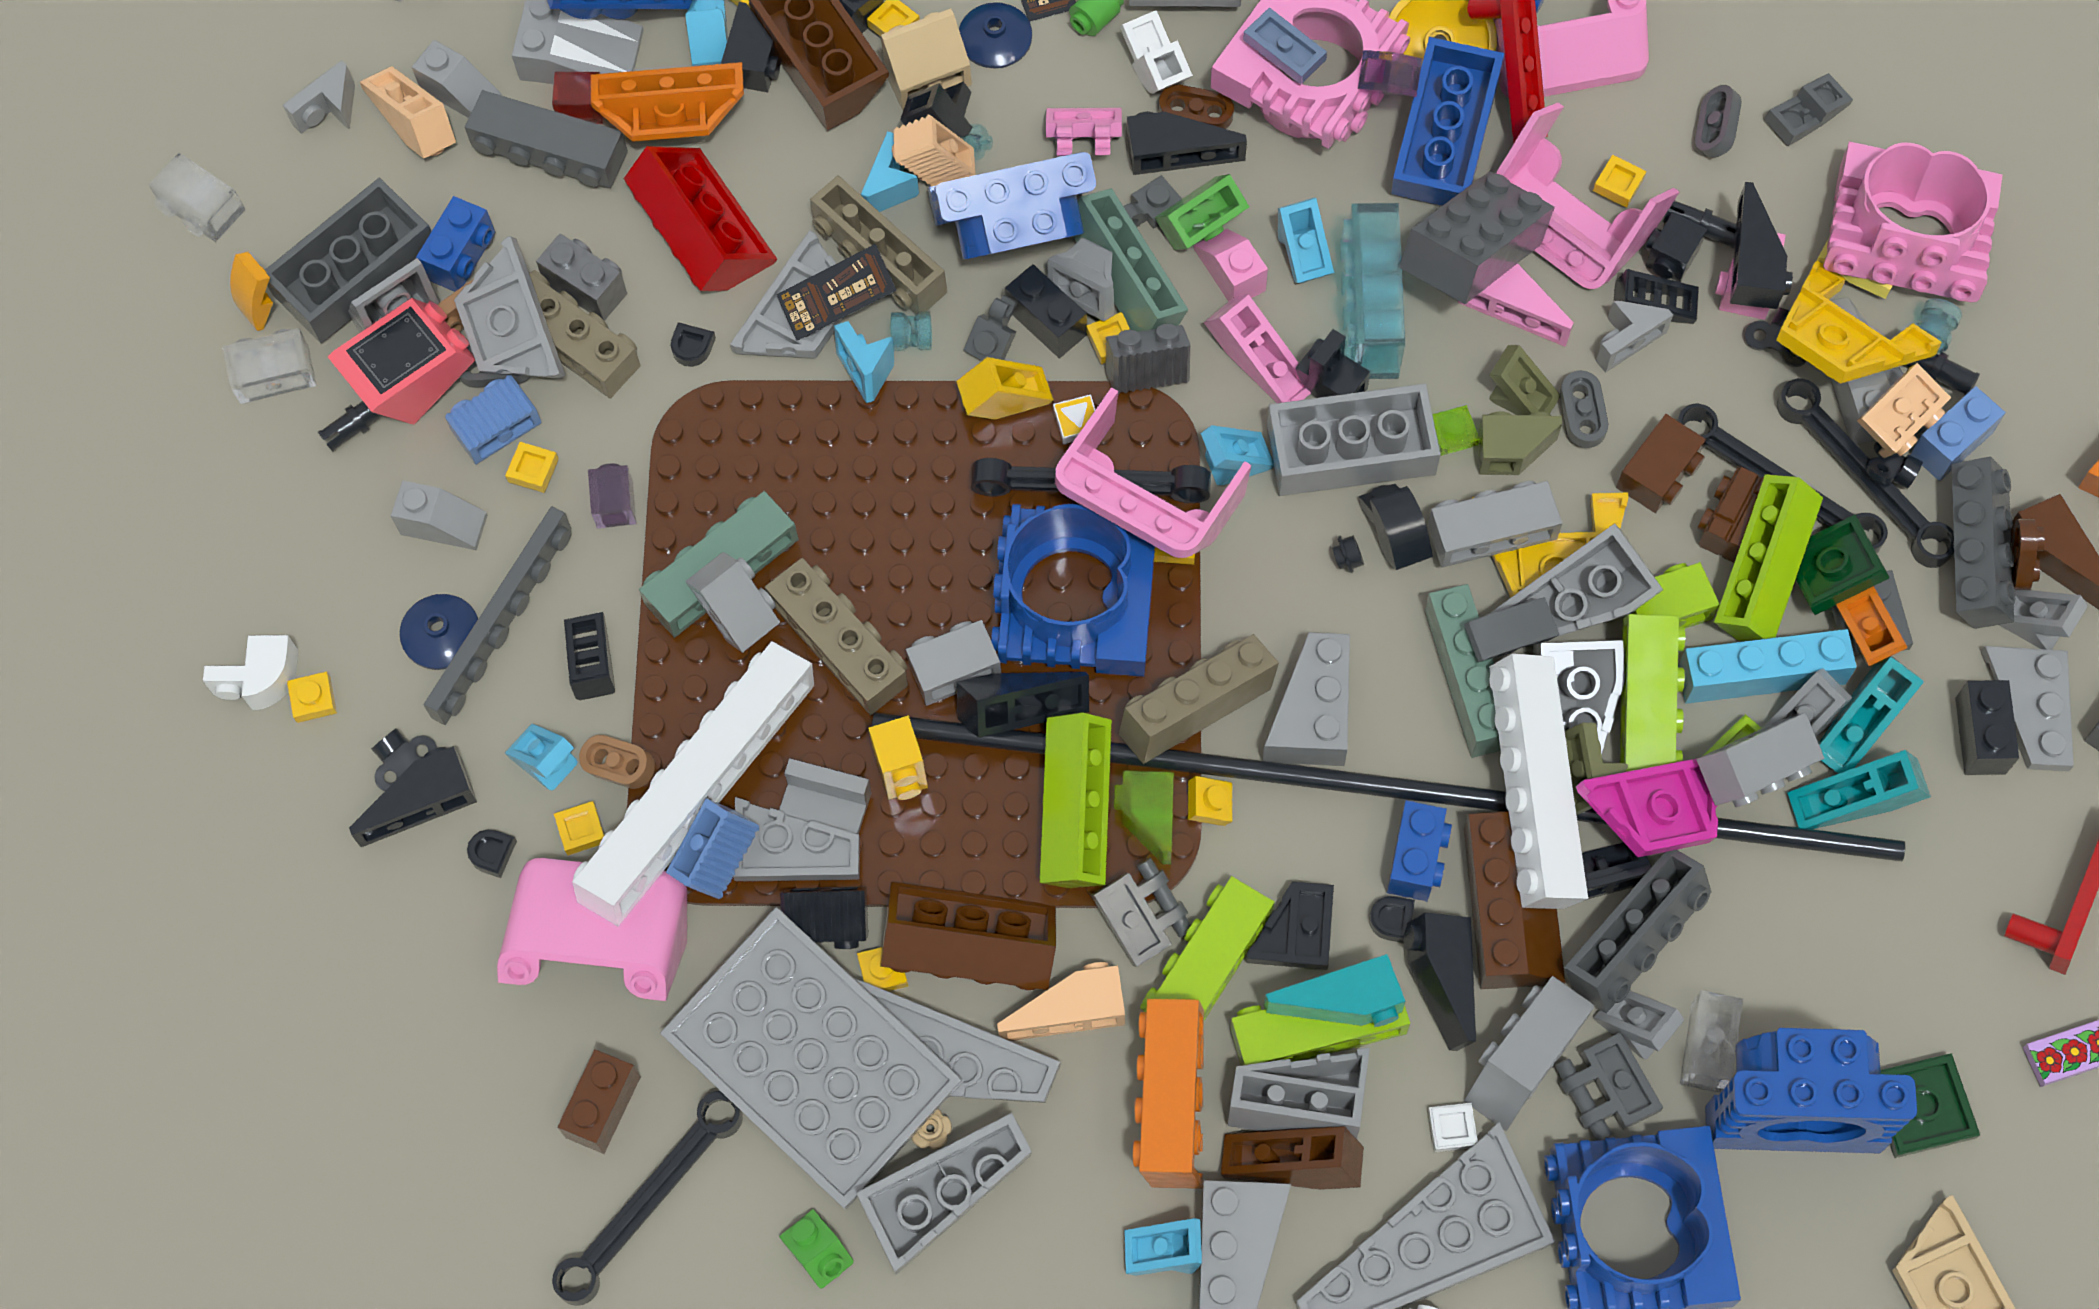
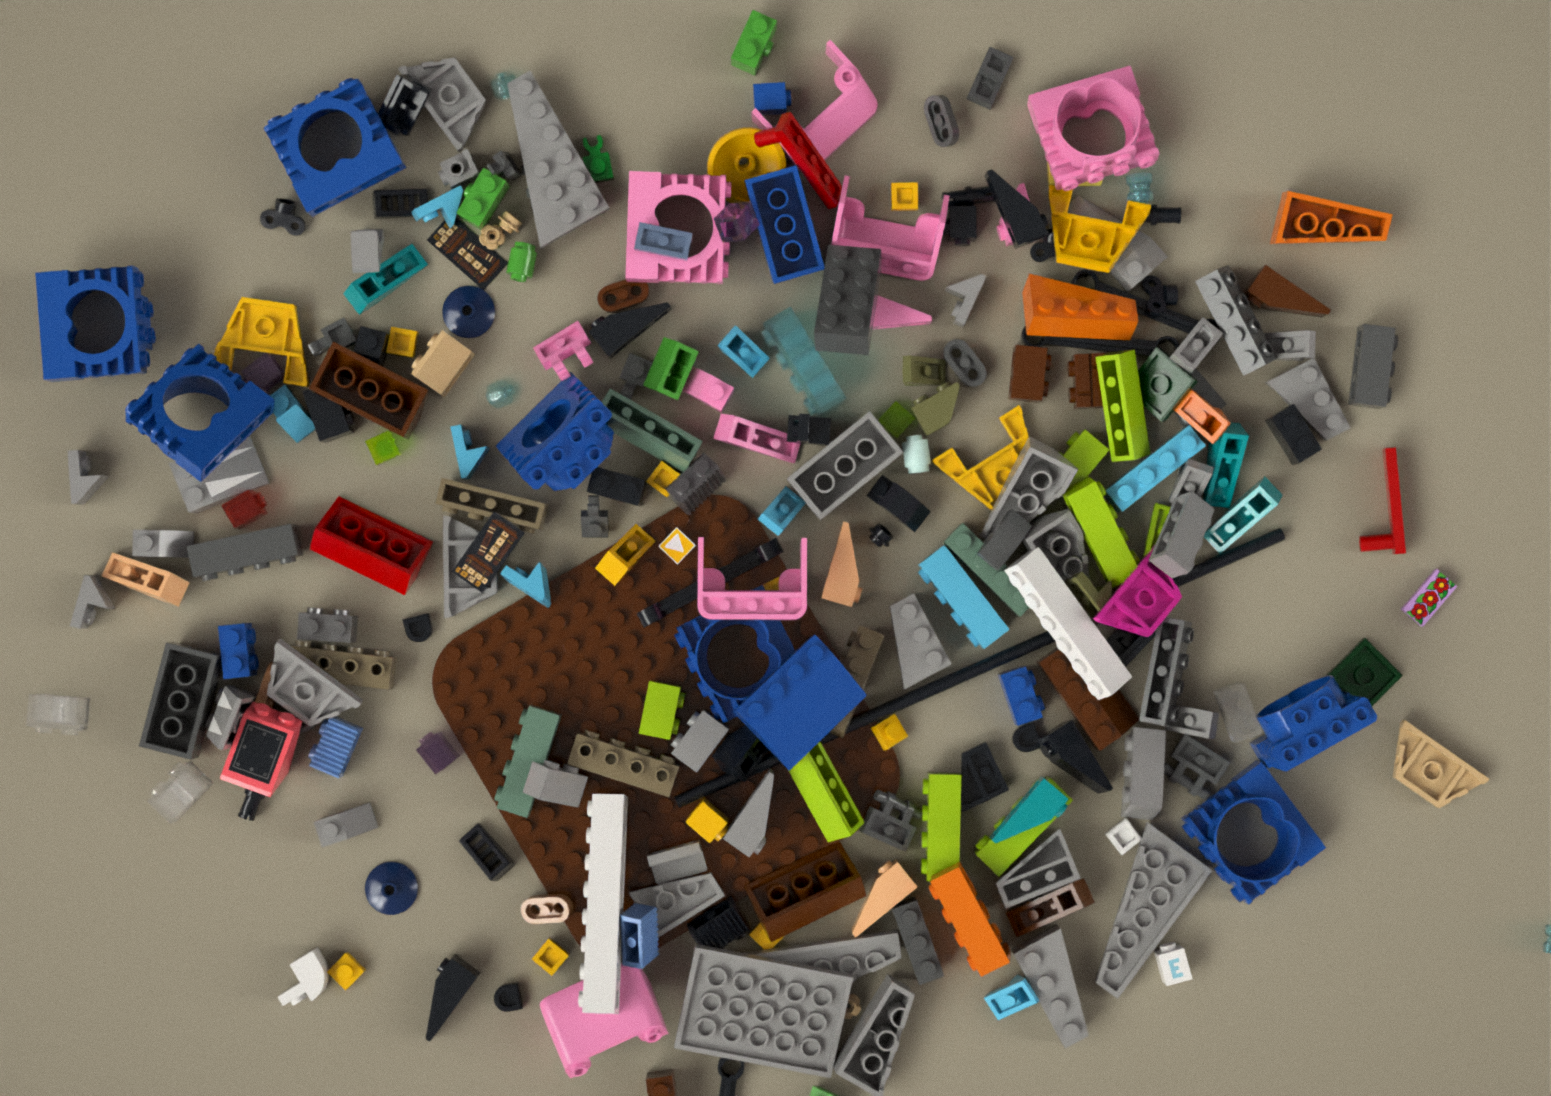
camera: 30 degrees left, 20 degrees up
(248, 289) = (138, 756): light orange slope -> none
(397, 755) = (421, 976): black piece -> none
(492, 626) = (422, 872): dark grey plate -> none
(532, 467) = (378, 761): yellow plate -> none
(543, 755) = (500, 928): medium azure slope -> none
(668, 100) = (305, 486): orange wedge -> none
(790, 120) = (383, 447): none -> clear neon green plate
(911, 331) = (544, 545): clear light blue wheel -> none
(927, 596) = (661, 709): none -> lime brick
(932, 151) = (488, 426): light nougat brick -> none
(944, 105) = (474, 396): black brick -> none
(958, 789) = (750, 823): none -> light grey slope
(1080, 1092) = (917, 940): none -> dark grey brick
(1085, 277) = (630, 455): light grey slope -> none
(1116, 655) = (800, 702): none -> blue slope
(1148, 809) = (861, 762): clear neon green slope -> none
(1155, 58) = (579, 276): white brick -> none
(1264, 575) = (842, 577): none -> light nougat slope
(1412, 686) = (963, 597): none -> medium azure brick
(1455, 477) = (916, 454): none -> light aqua brick
(1494, 523) = (956, 474): light grey brick -> none
(1645, 283) = (946, 269): black slope -> none
(1771, 419) = (1076, 311): none -> orange wedge
(1903, 410) = (1154, 269): light nougat bracket -> none
(1911, 540) = (1196, 345): none -> light grey slope
(1958, 433) = (1187, 255): medium blue brick -> none
(2025, 544) = (1265, 313): reddish brown plate -> none

